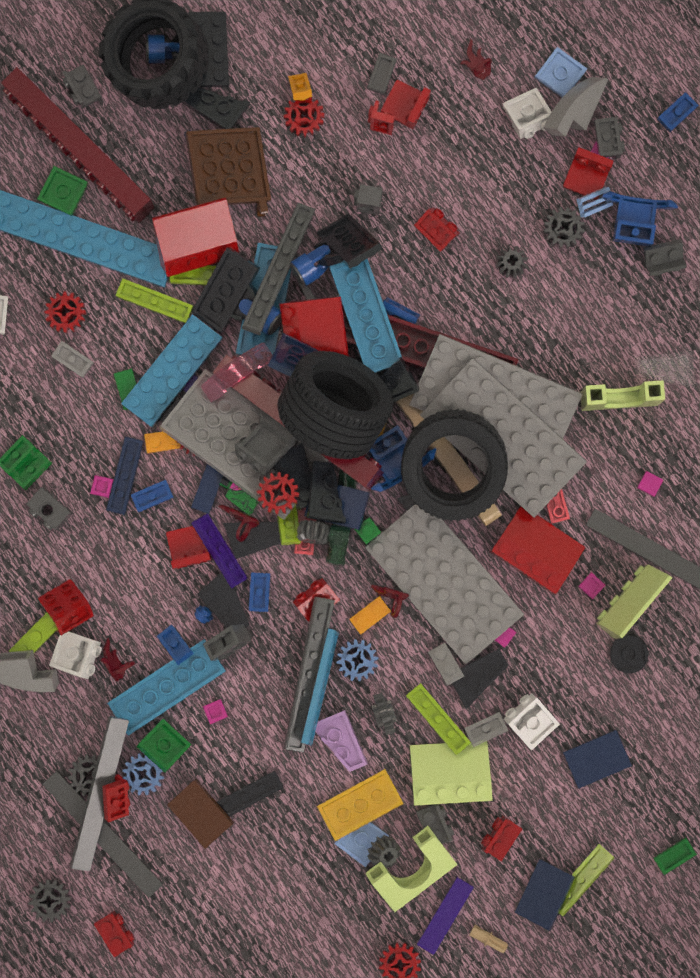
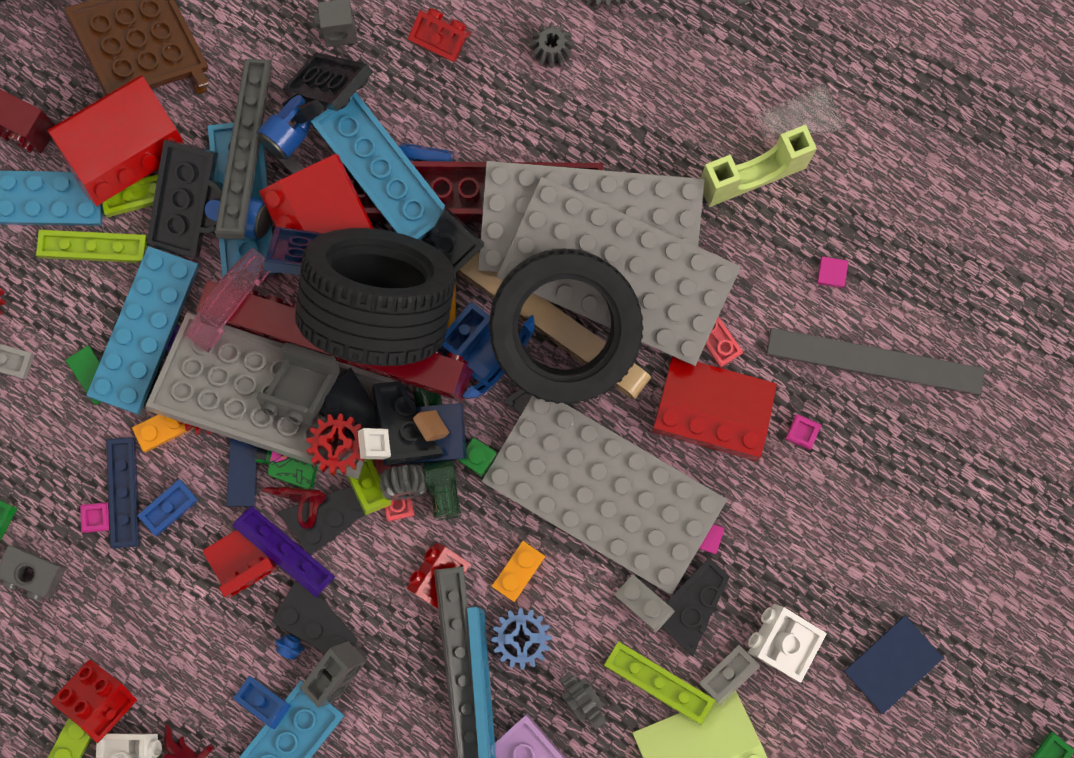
camera: 20 degrees left, 5 degrees down
(259, 592) = (357, 590): blue plate -> none
(302, 502) = (374, 443): none -> white plate
(343, 501) = (431, 425): none -> medium nougat tile
(396, 595) = (546, 532): dark red piece -> none
(625, 658) = (879, 514): black tile -> none
(633, 601) = (867, 432): yellowish green slope -> none

